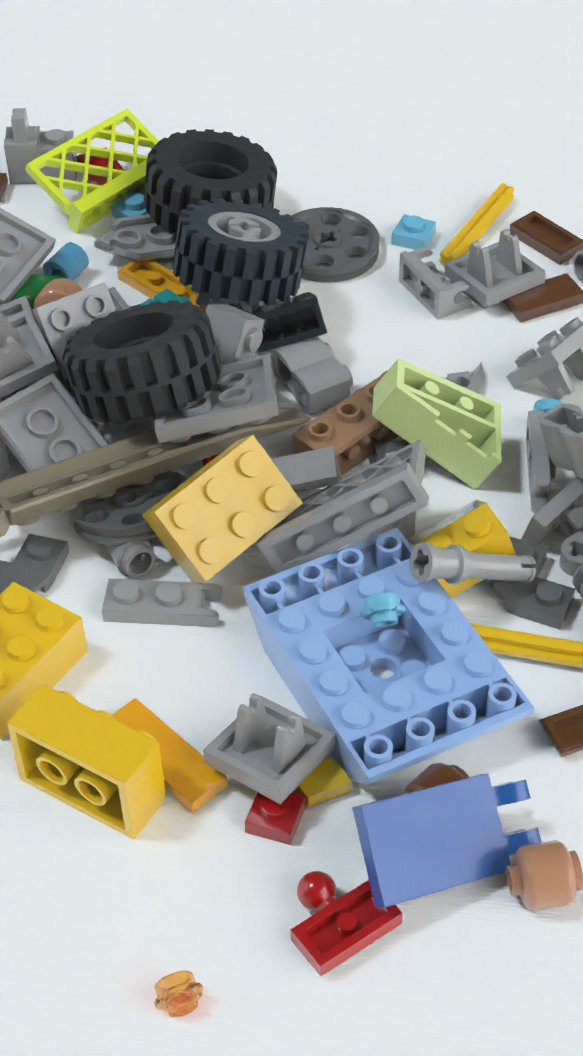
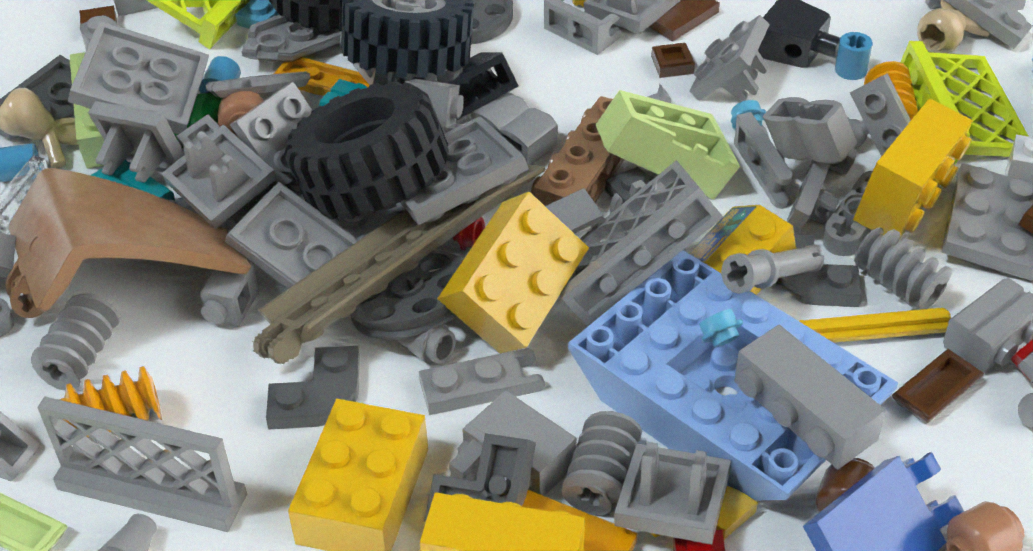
camera: 20 degrees left, 0 degrees up
(90, 276) = (257, 84): none -> light grey tile
(120, 688) = (501, 473): none -> dark grey plate
(155, 668) = (516, 419): none -> light grey hinge
(219, 700) = (601, 462): none -> light grey piece
(424, 694) = (809, 396): none -> light grey brick
(507, 341) = (672, 60): none -> reddish brown tile

